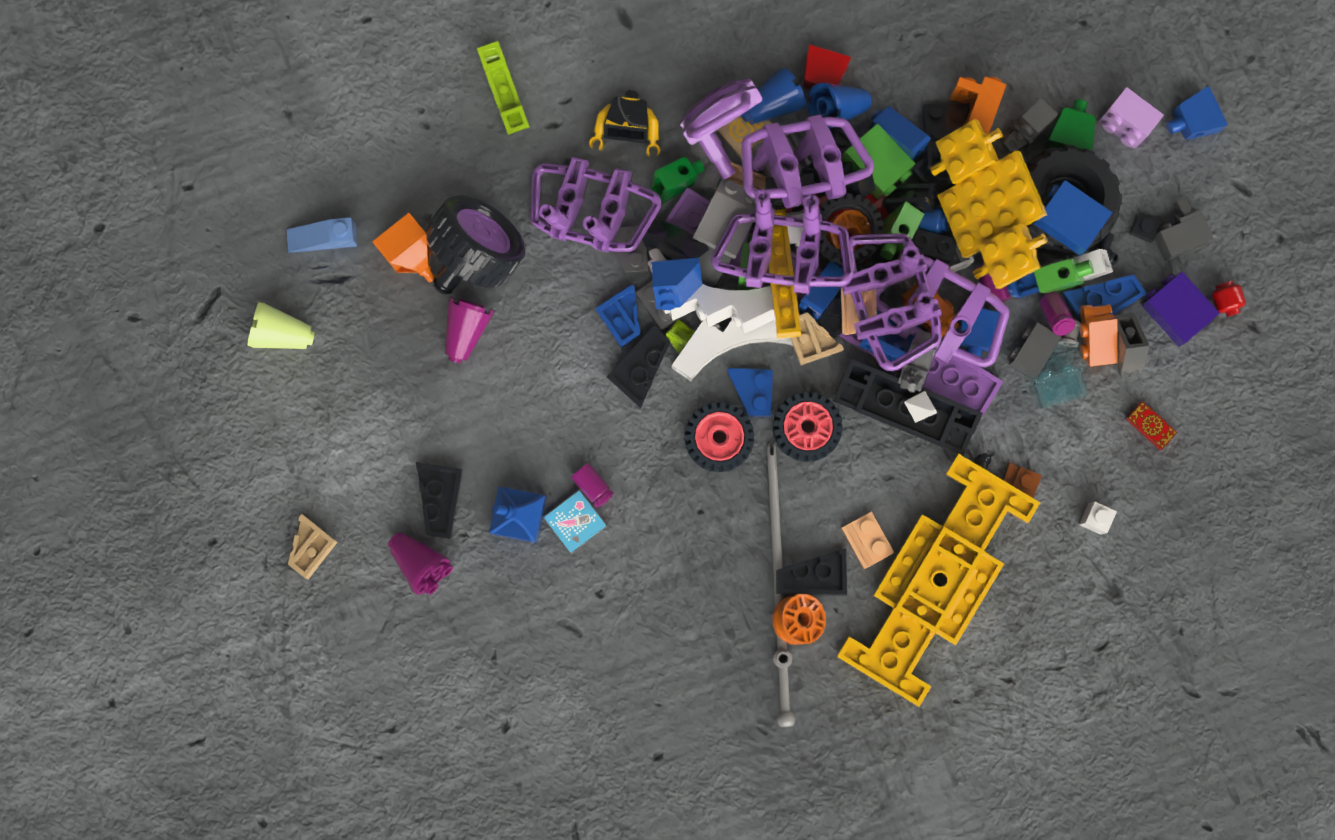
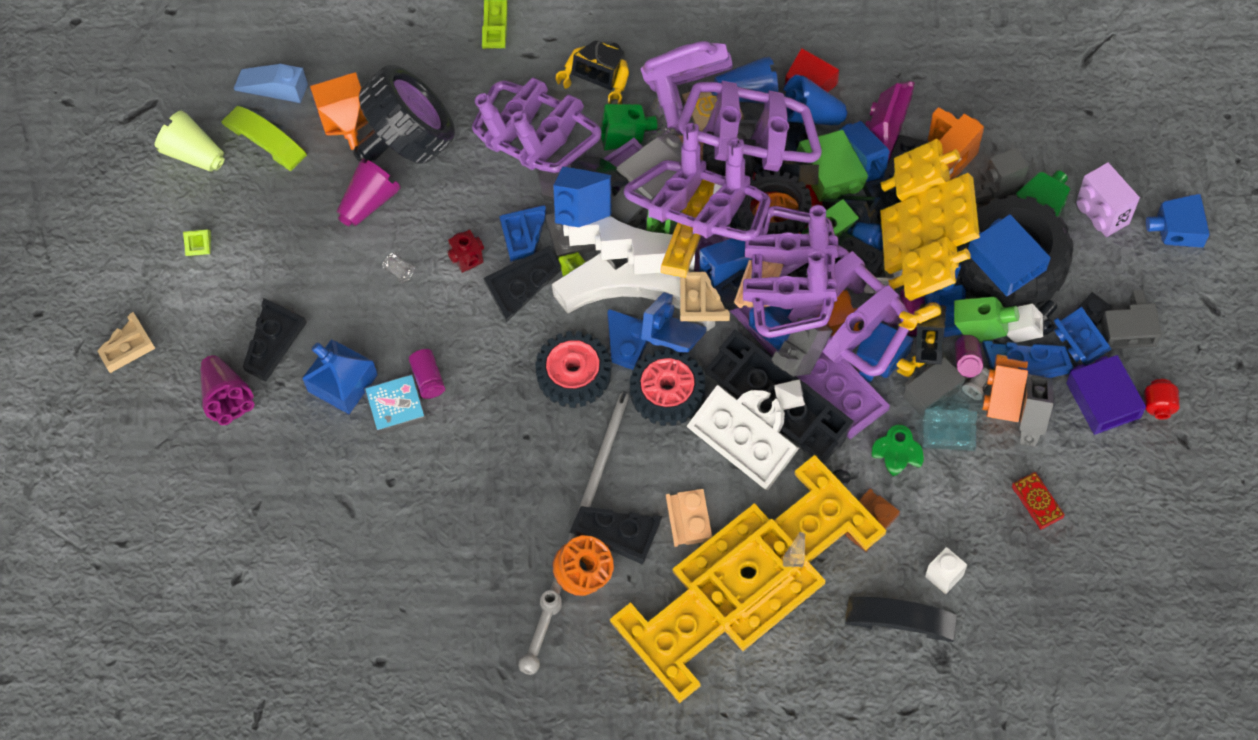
camera: 25 degrees right, 20 degrees down
(327, 423) = (197, 242): none -> lime slope
(340, 294) = (265, 135): none -> lime slope
(524, 389) = (398, 267): none -> clear bush
(581, 362) = (465, 250): none -> dark red brick
(789, 376) = (664, 330): none -> blue bracket
(891, 451) = (745, 433): none -> white plate
(910, 90) = (890, 113): none -> magenta wedge
(978, 553) = (796, 553): none -> clear slope
(1021, 311) = (930, 336): none -> torso
(1022, 422) = (896, 453): none -> green plate
(1071, 570) = (901, 615): none -> black slope
(1144, 259) = (1083, 336): none -> blue bracket

